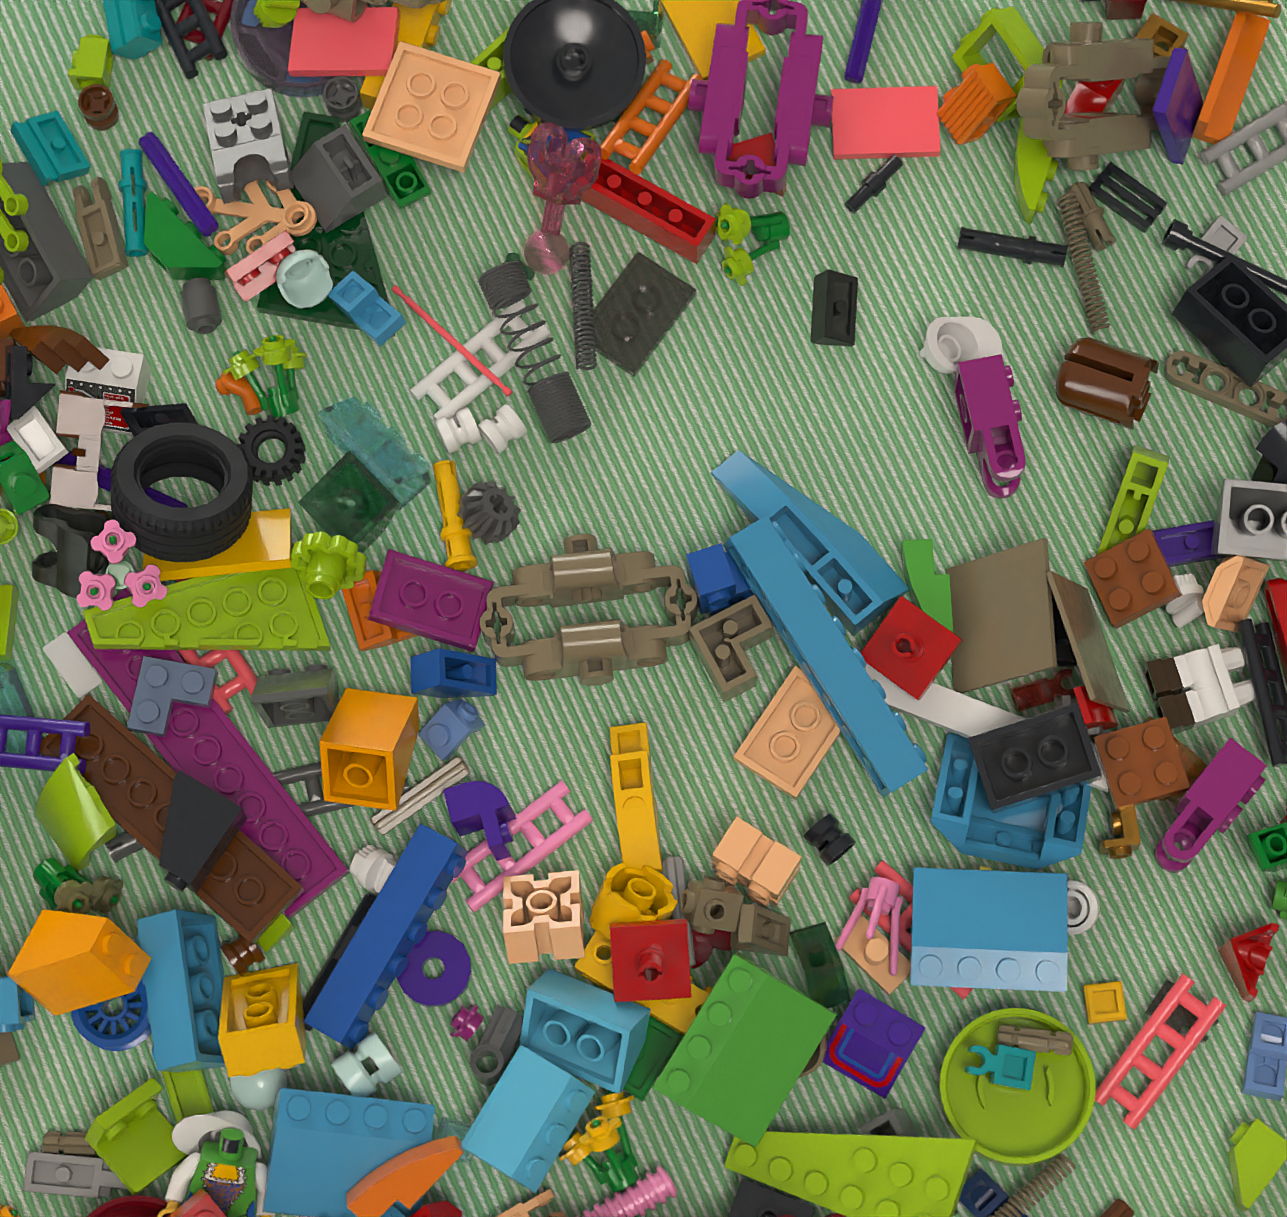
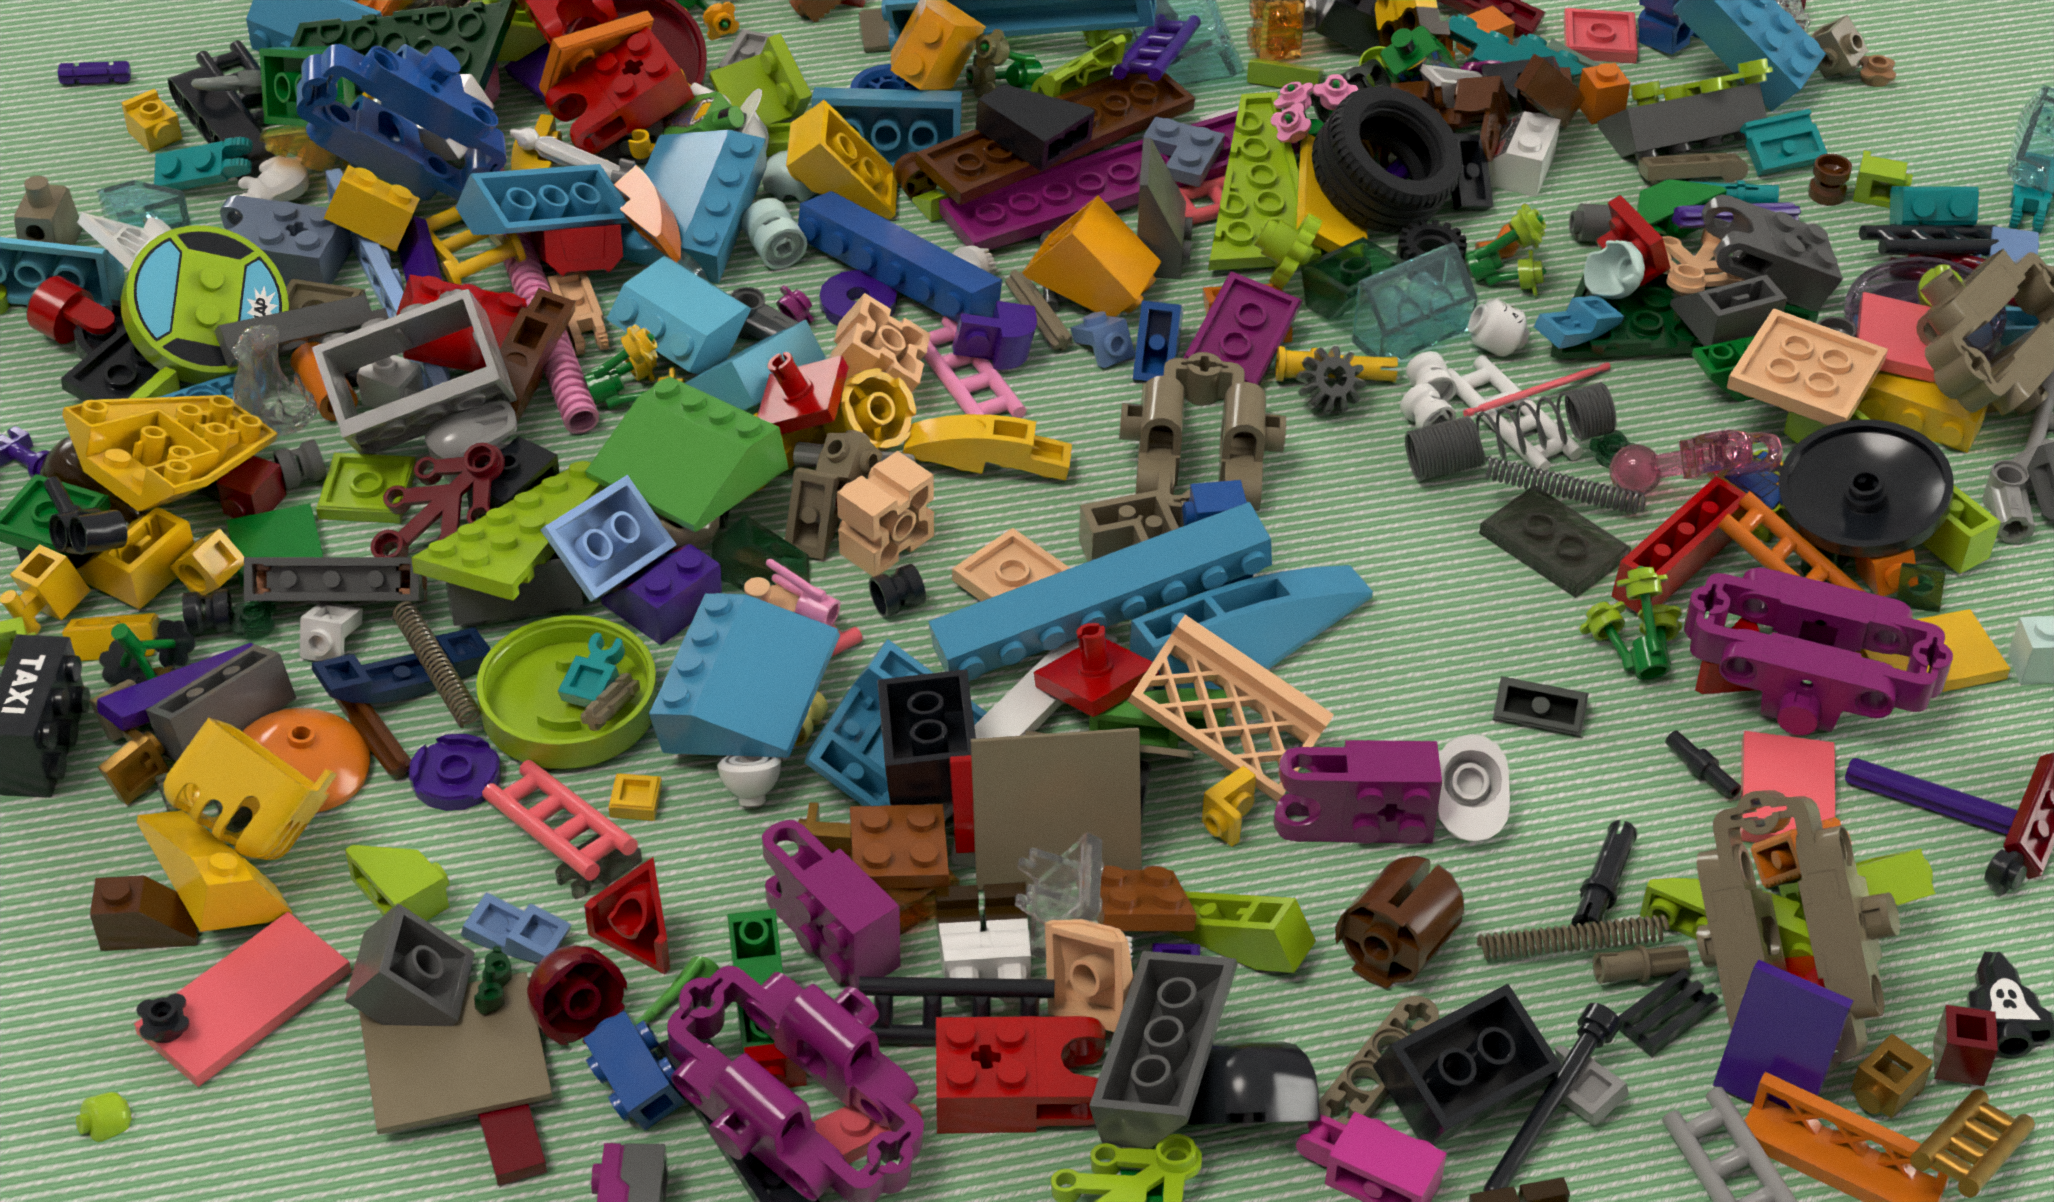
camera: 95 degrees right, 30 degrees down
(379, 378) = (1498, 327): none -> white head
(863, 1092) = (608, 538): none -> light blue slope
(899, 534) = (1245, 685): none -> light nougat fence
(1005, 527) = (1228, 803): none -> yellow bracket
(1113, 1161) = (454, 771): none -> dark purple tile
(1150, 629) = (1061, 887): none -> clear plate

